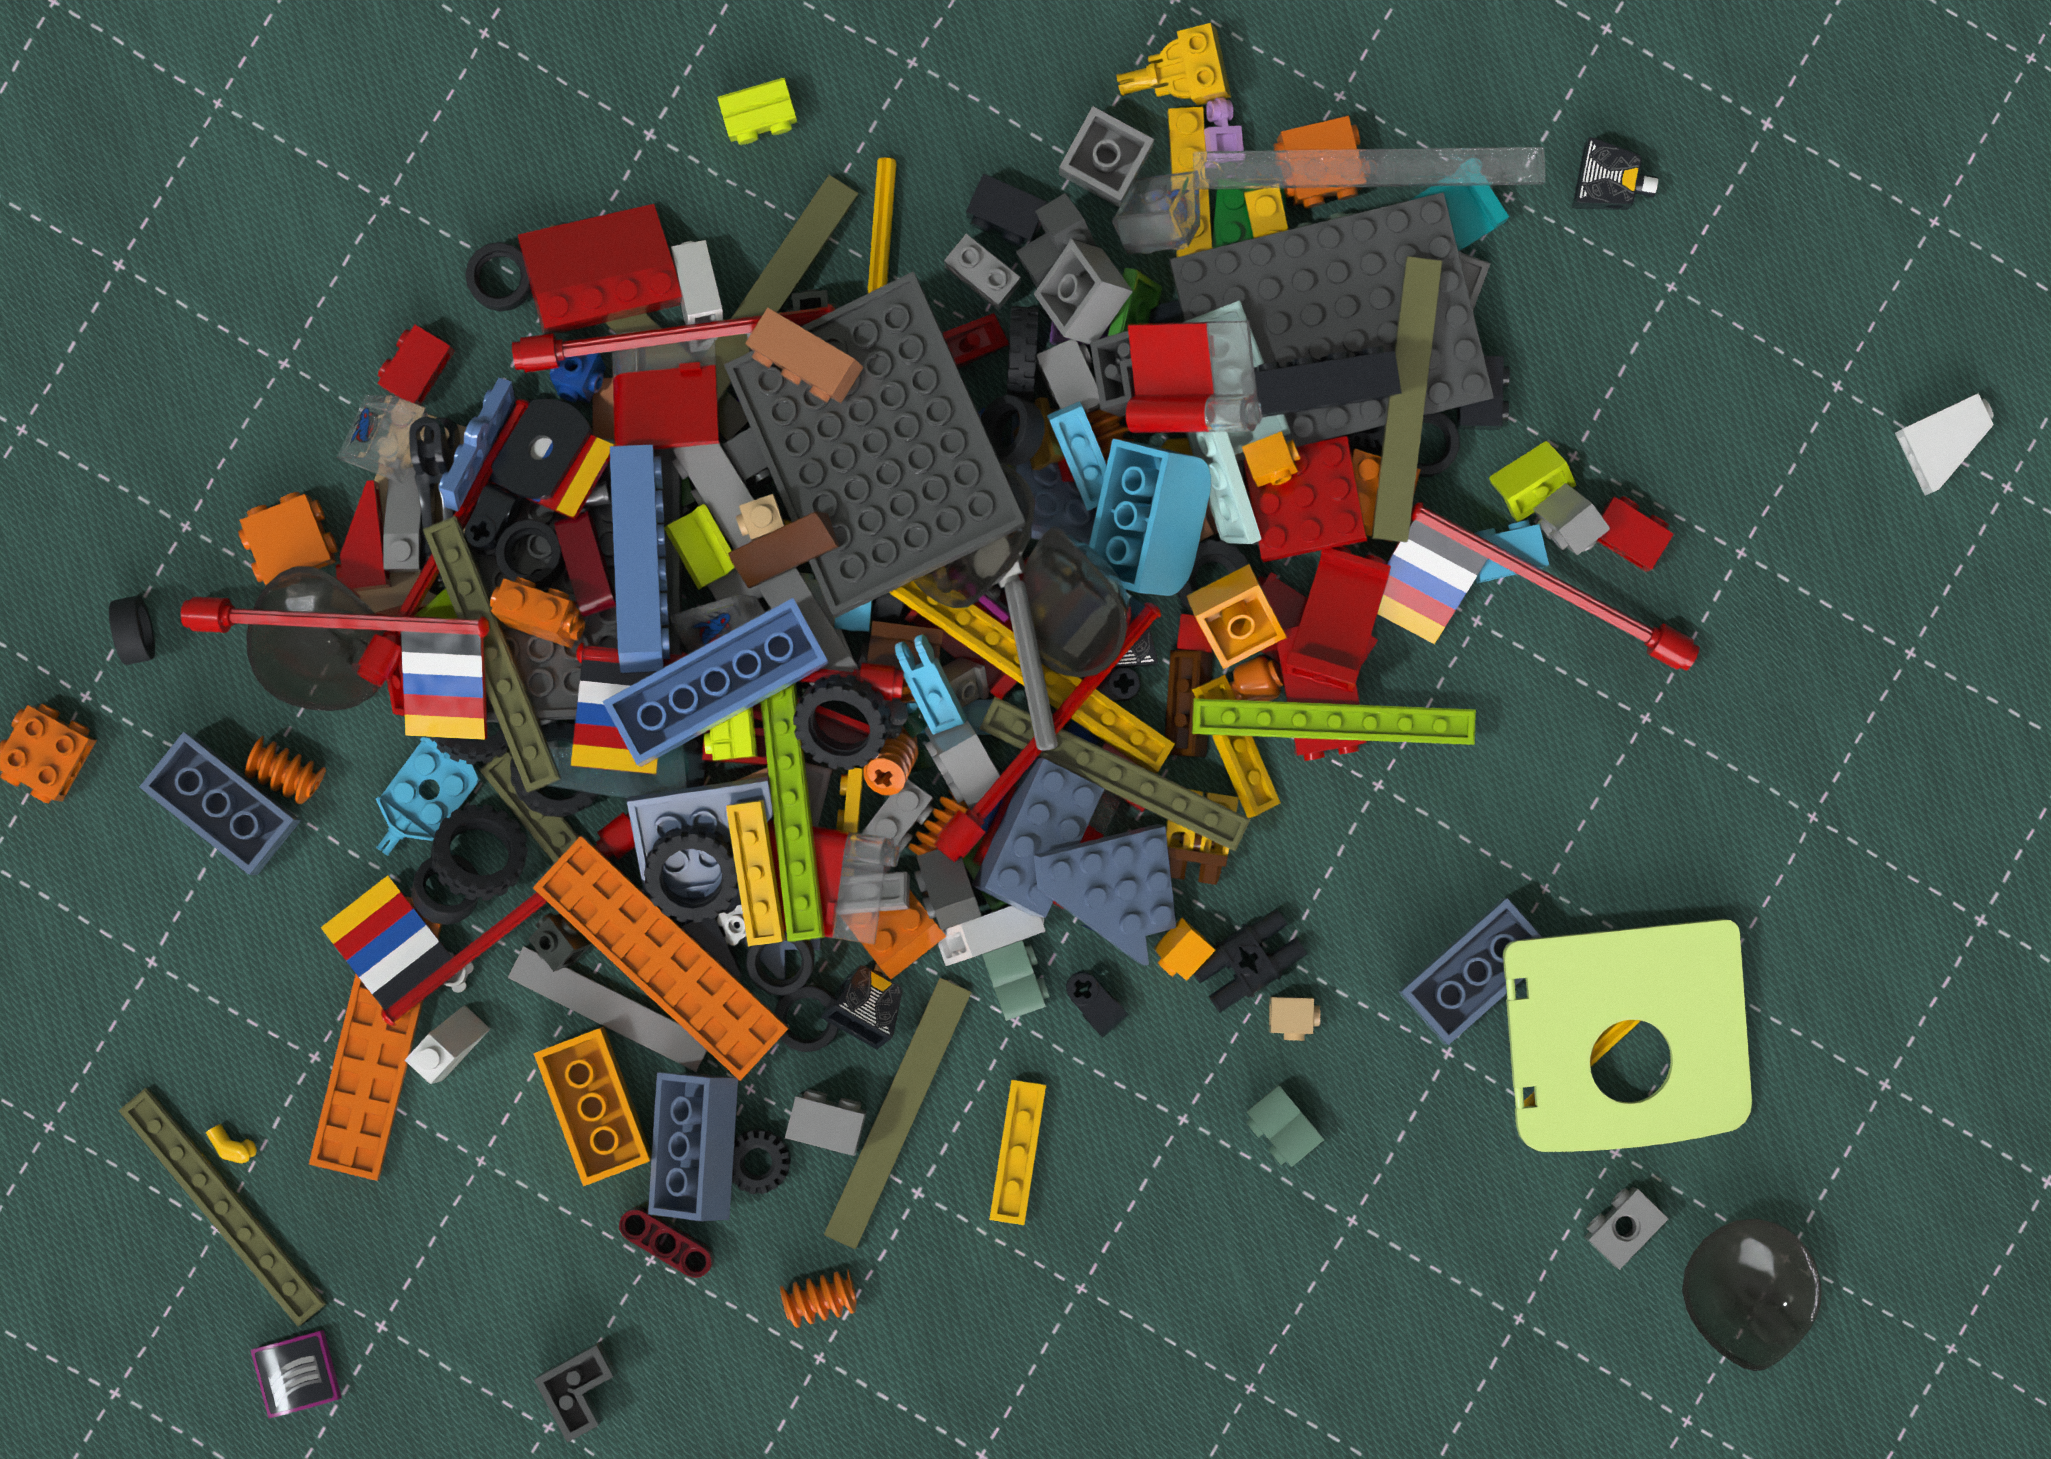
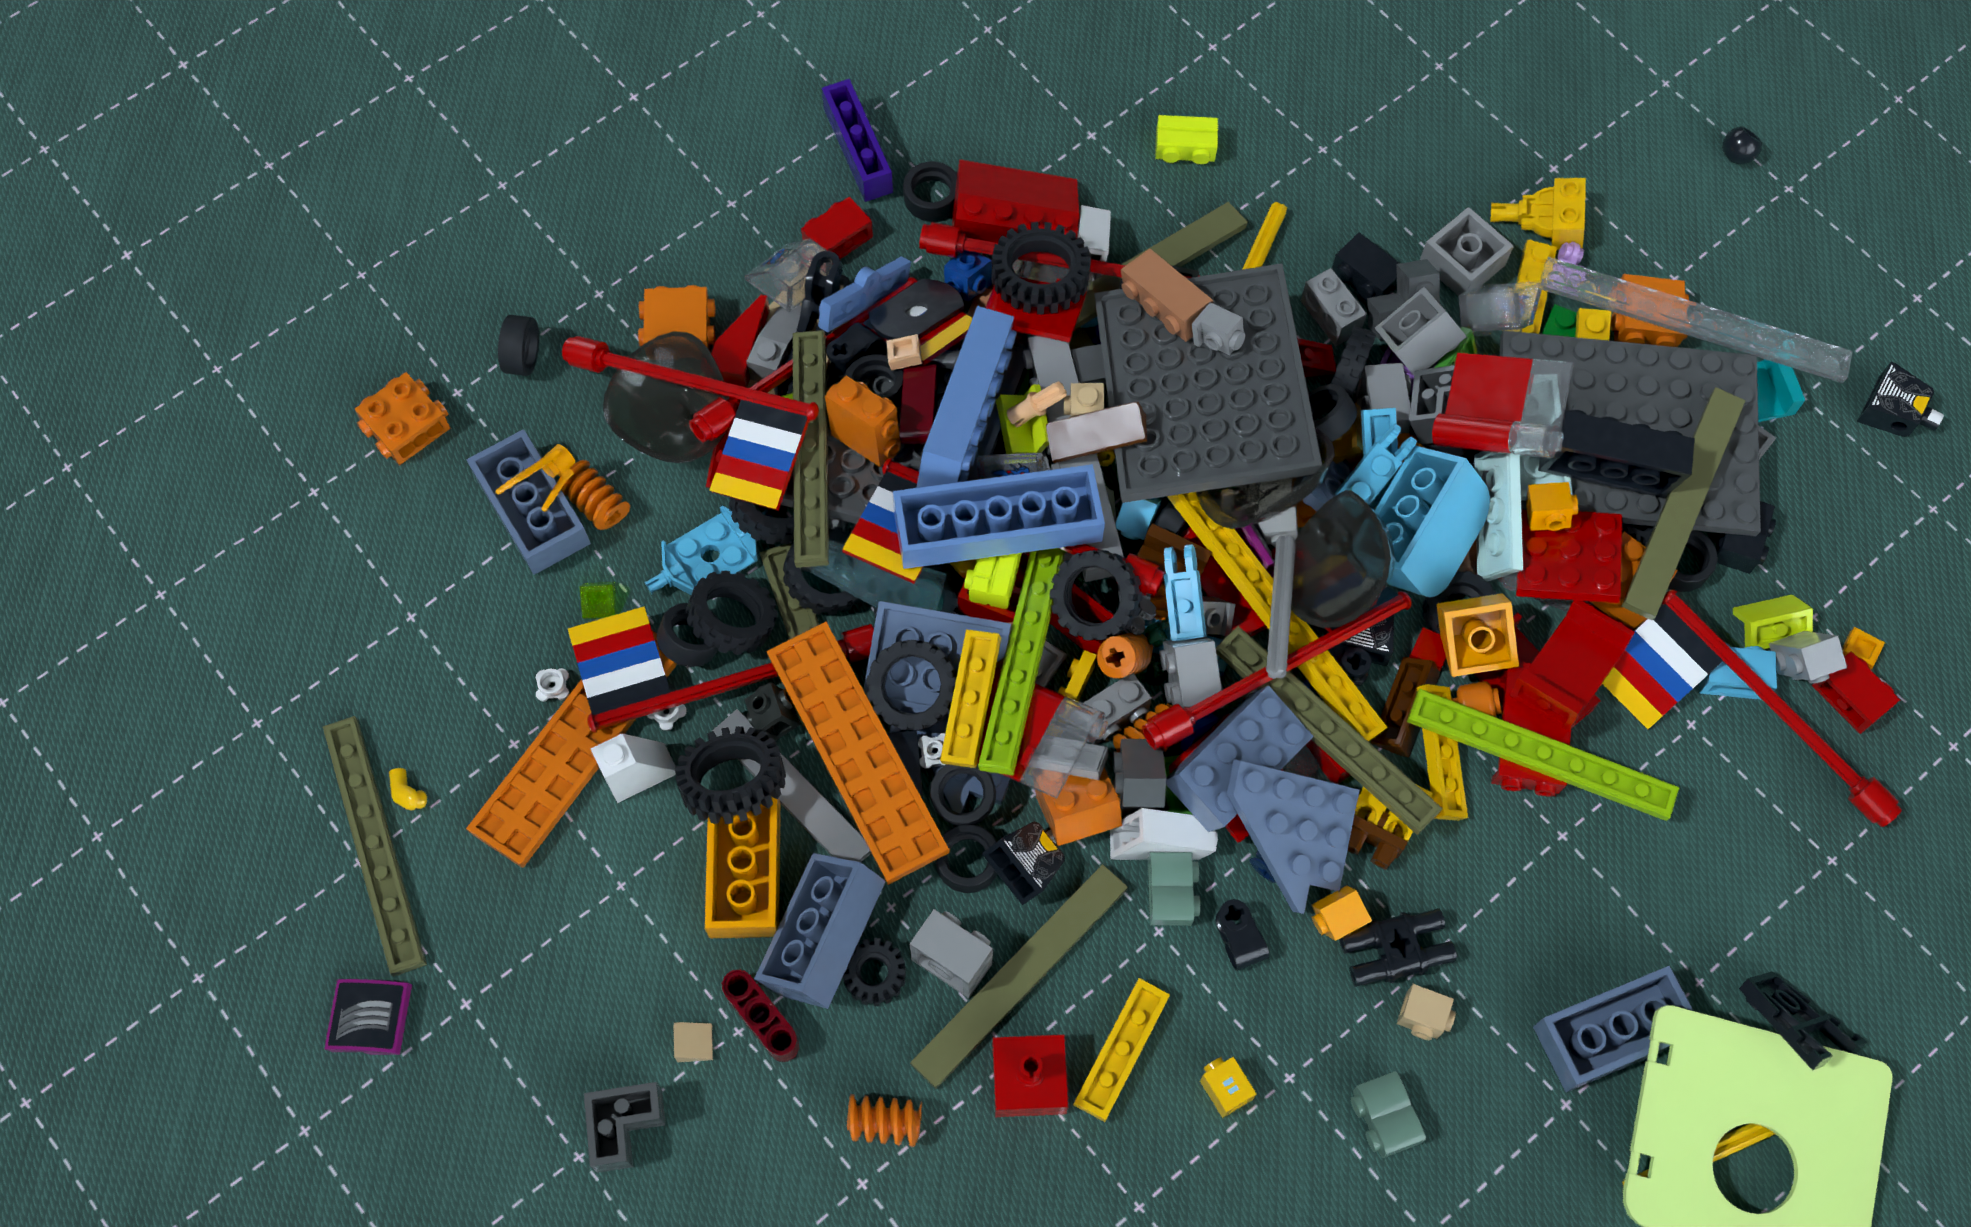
camera: 20 degrees right, 20 degrees down
(232, 763) = (554, 463): none -> light orange plant
(317, 983) = (549, 676): none -> white plate
(334, 876) = (598, 599): none -> clear neon green slope
(394, 245) = (857, 140): none -> dark purple brick
(549, 514) = (904, 352): none -> light nougat tile
(568, 1057) = (738, 800): none -> black tyre
(612, 1287) = (693, 1042): none -> tan slope
(644, 327) = (1034, 294): none -> black tyre
(710, 533) = (1036, 404): none -> light nougat axle
(872, 388) = (1218, 329): none -> light grey brick
(939, 1209) = (1030, 1075): none -> red brick
(1081, 477) = (1377, 466): none -> medium azure hinge
(1126, 1152) = (1227, 1085): none -> yellow brick
(1628, 479) = (1863, 646): none -> light orange tile
(1628, 896) = (1793, 1019): none -> black wing

